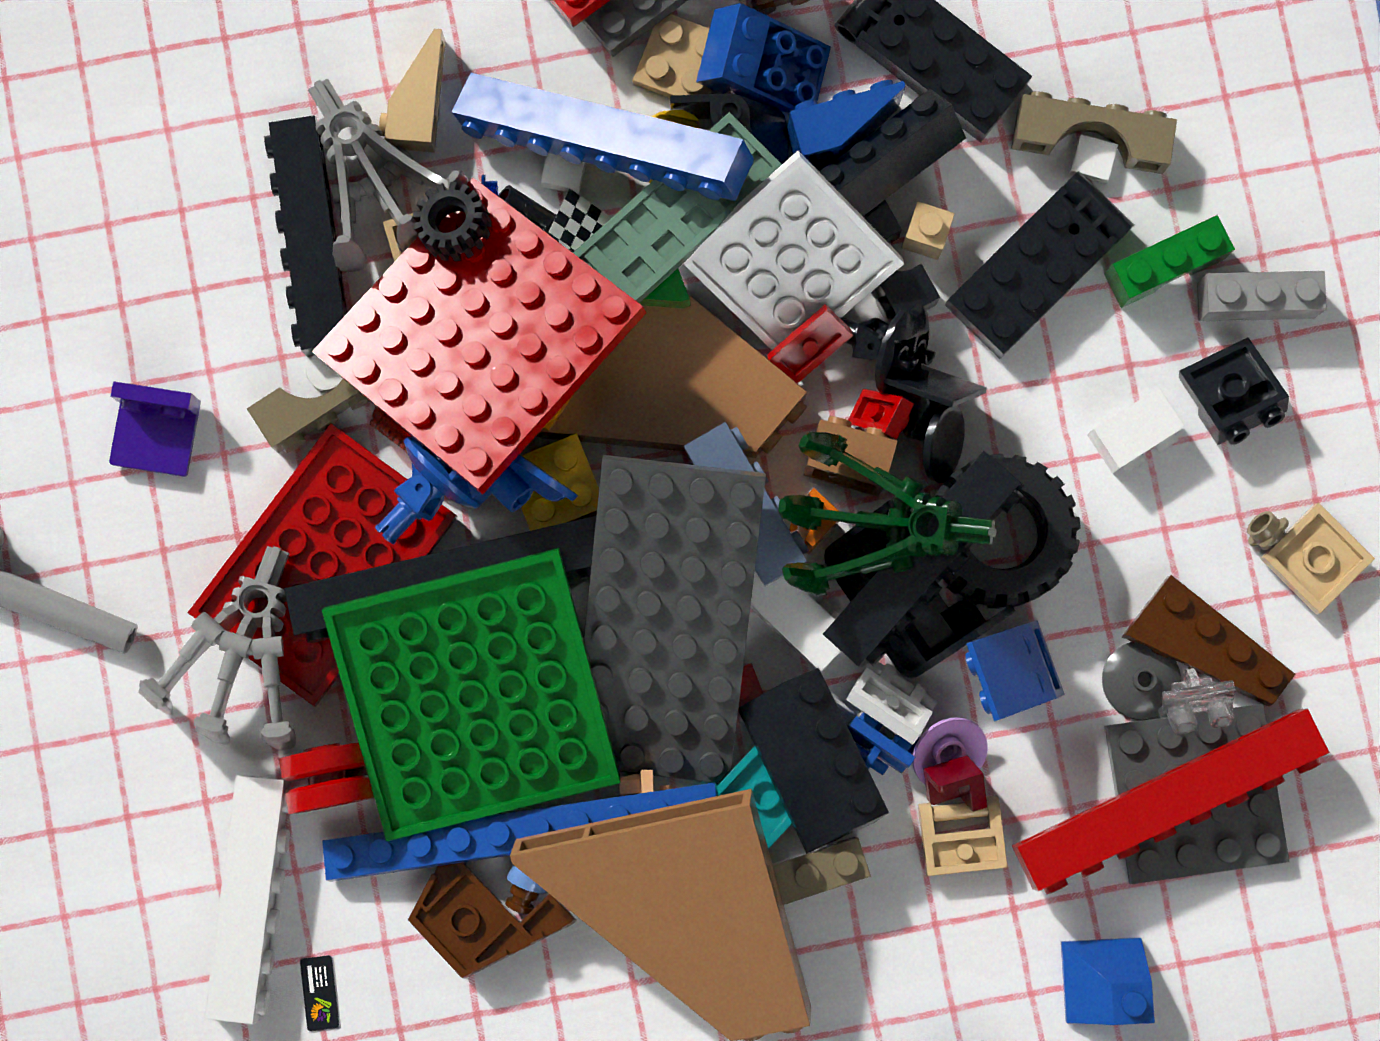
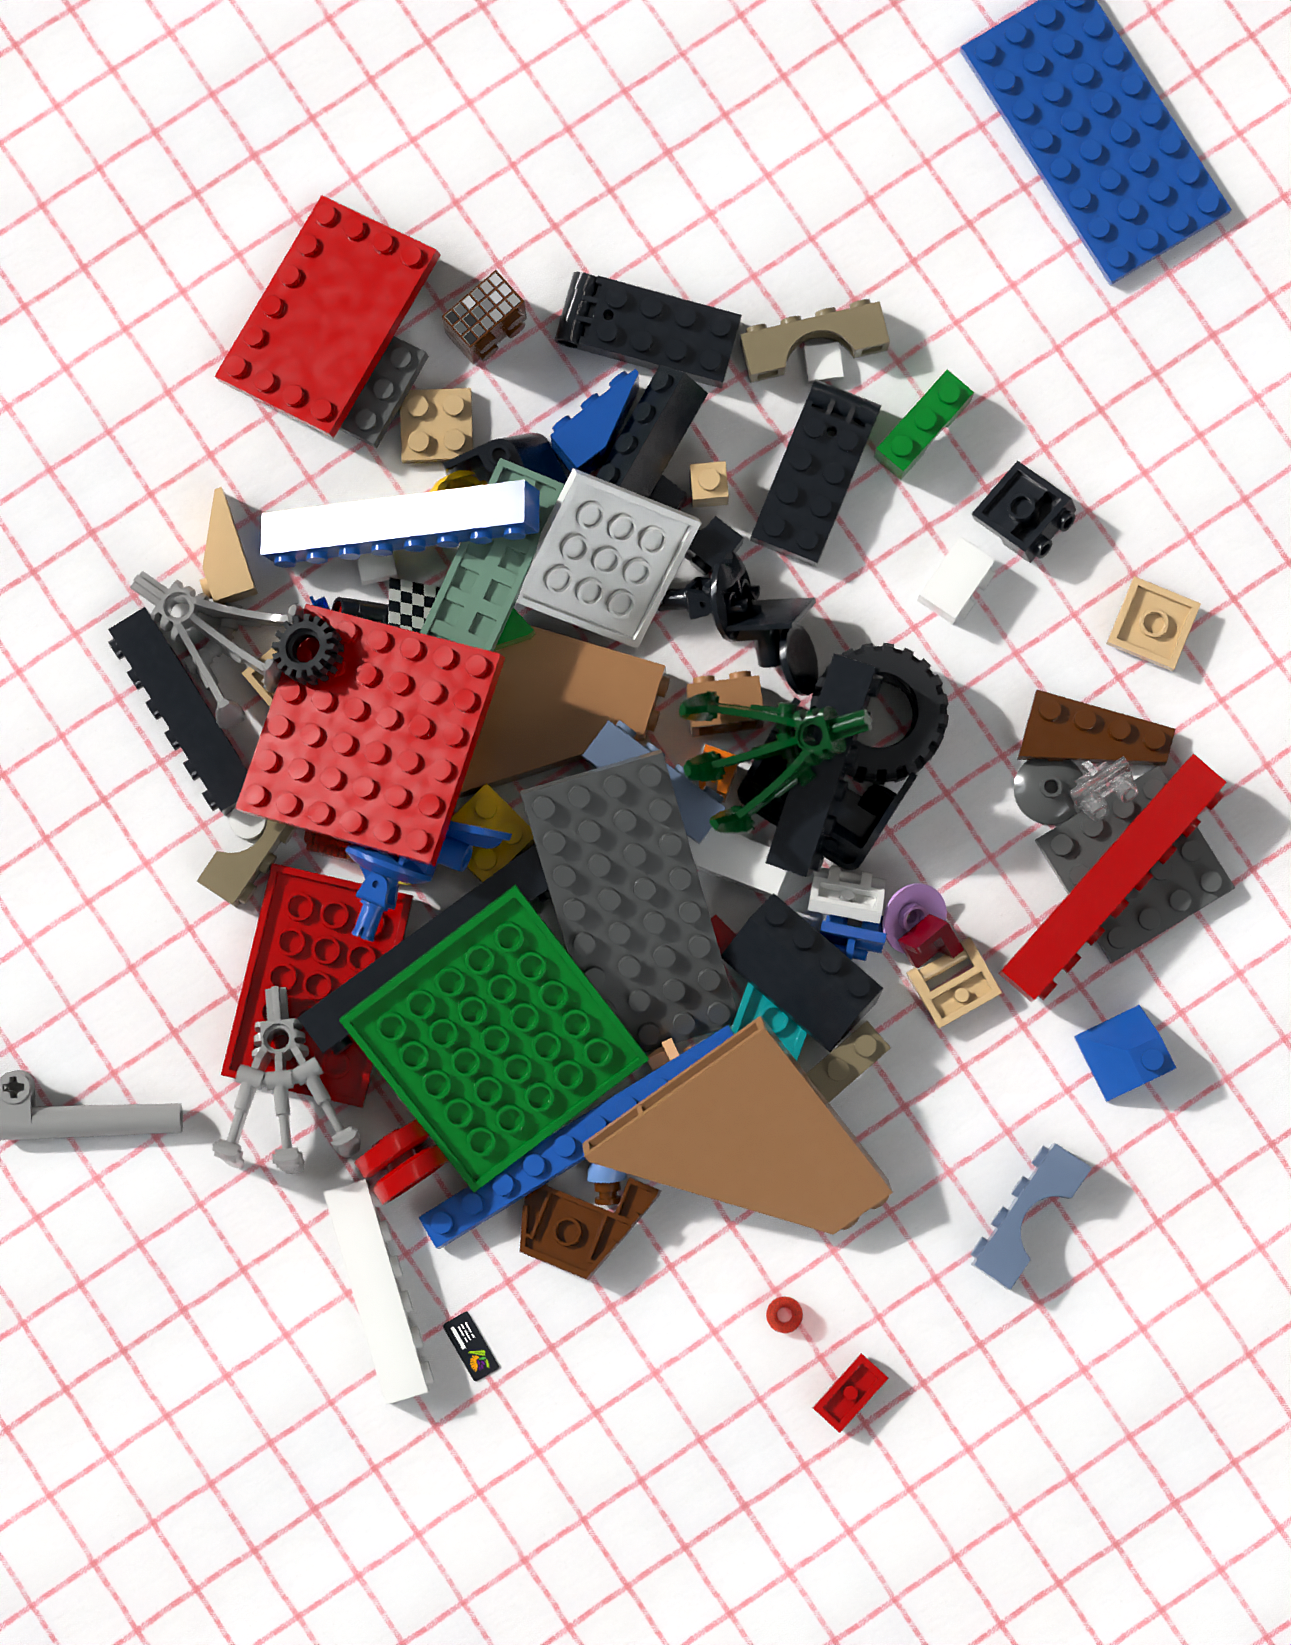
camera: 20 degrees left, 0 degrees up
(154, 429) = (123, 932): dark purple bracket -> none
(761, 59) = (506, 397): blue slope -> none
(810, 344) = (651, 624): red plate -> none
(881, 412) = (735, 656): red plate -> none
(1014, 670) = (937, 825): blue slope -> none
(1261, 295) = (1013, 421): light grey brick -> none
(1266, 530) = (1100, 617): dark tan plate -> none

